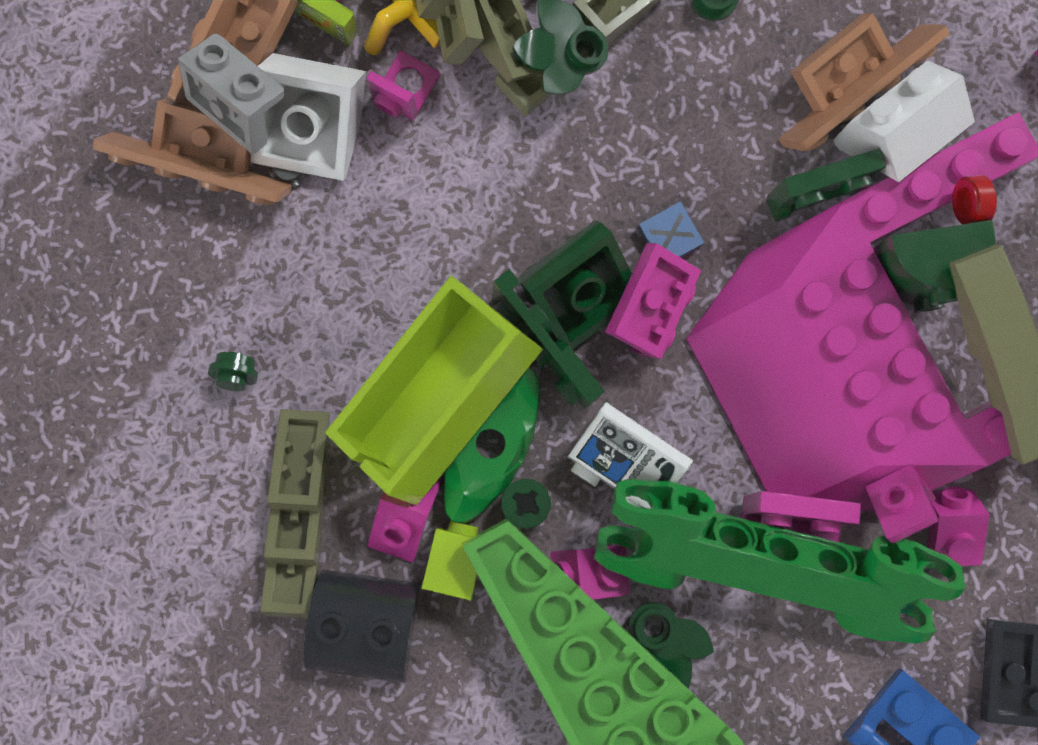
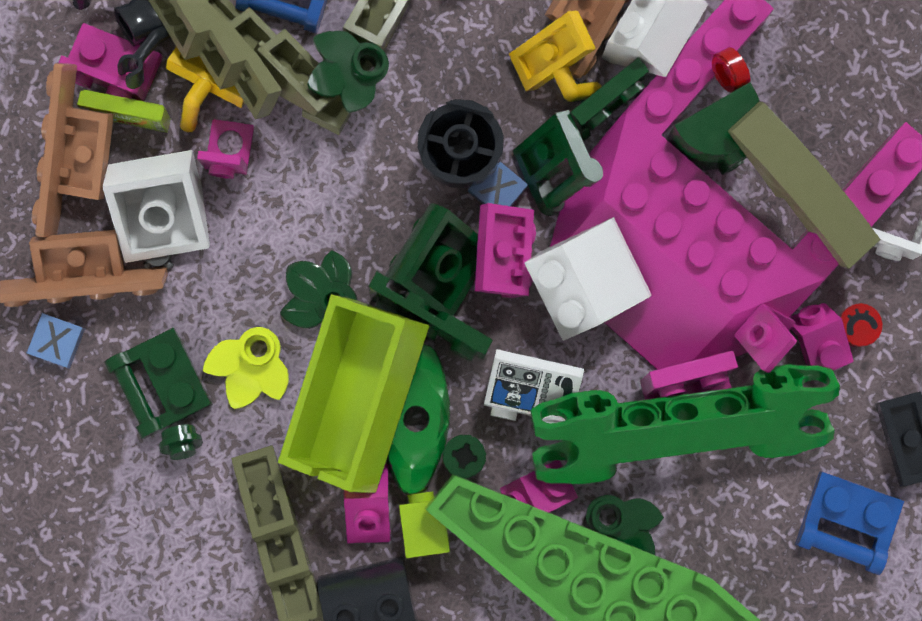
camera: 20 degrees left, 0 degrees up
(147, 216) = (55, 340): none -> medium blue tile
(230, 90) = (89, 211): light grey bracket -> none
(252, 300) = (171, 376): none -> dark green plate
(331, 326) = (246, 373): none -> neon yellow plate
(433, 264) = (313, 287): none -> dark green plate
(651, 170) = (460, 143): none -> black cylinder
(732, 366) = (588, 279): none -> white slope
(740, 215) = (549, 151): none -> dark green plate
(784, 113) = (551, 55): none -> yellow plate
(1006, 528) = (861, 324): none -> red tile

